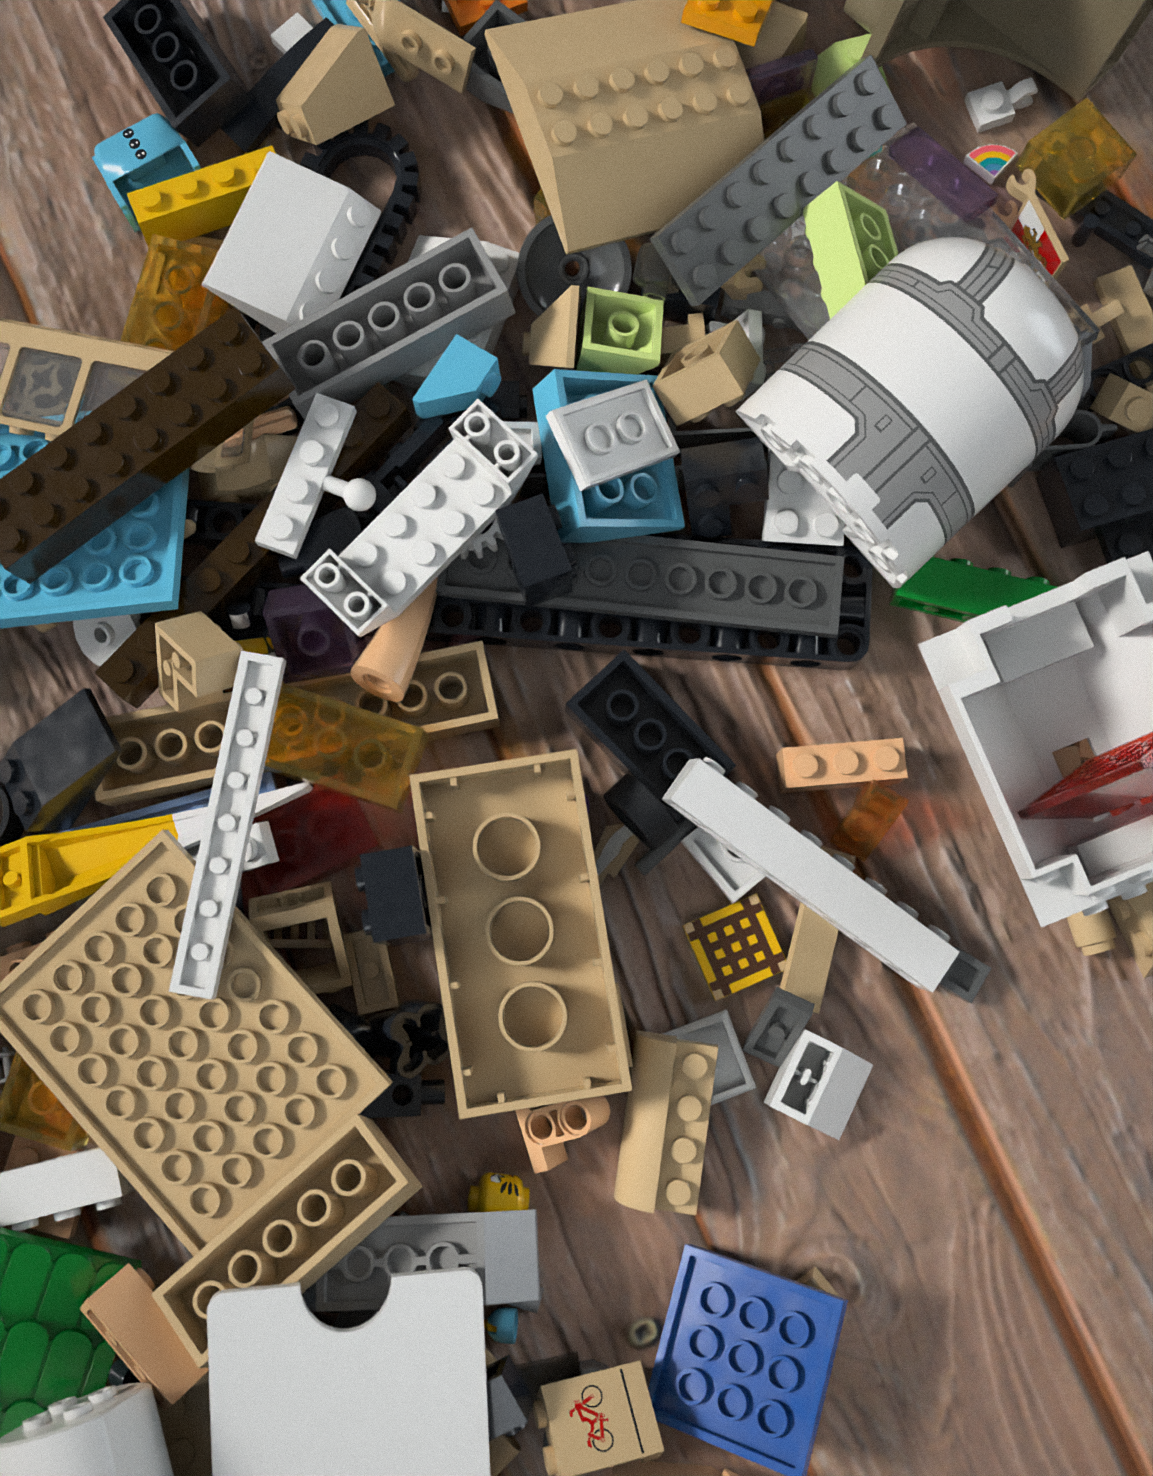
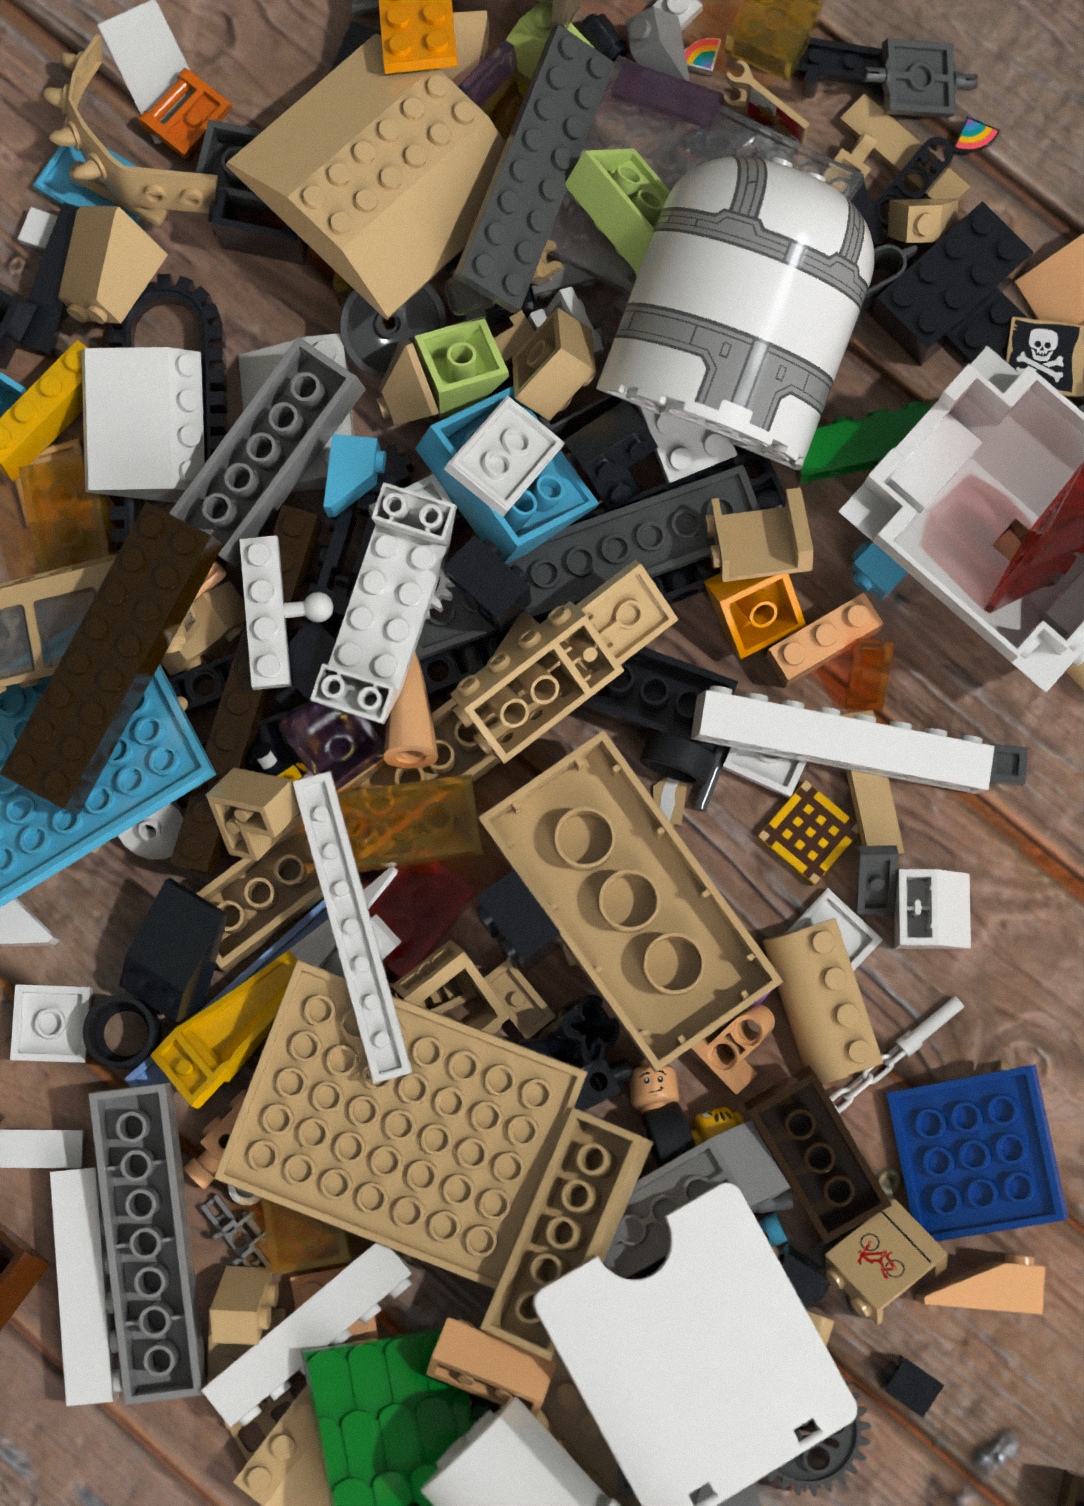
camera: 20 degrees left, 0 degrees up
(447, 1180) = (668, 1132): none -> black tyre
(454, 1134) = (652, 1089): none -> light nougat head
(485, 130) = (254, 238): none -> black panel
(568, 661) = (559, 664): none -> tan wedge
(583, 1277) = (817, 1154): none -> dark brown brick
(618, 1230) = (907, 1044): none -> white piece
(790, 697) = (755, 611): none -> light orange brick
(826, 638) = (761, 540): none -> tan panel
(909, 97) = (603, 36): none -> black brick
(925, 722) = (875, 570): none -> medium azure brick
(957, 122) = (658, 42): none -> light grey slope

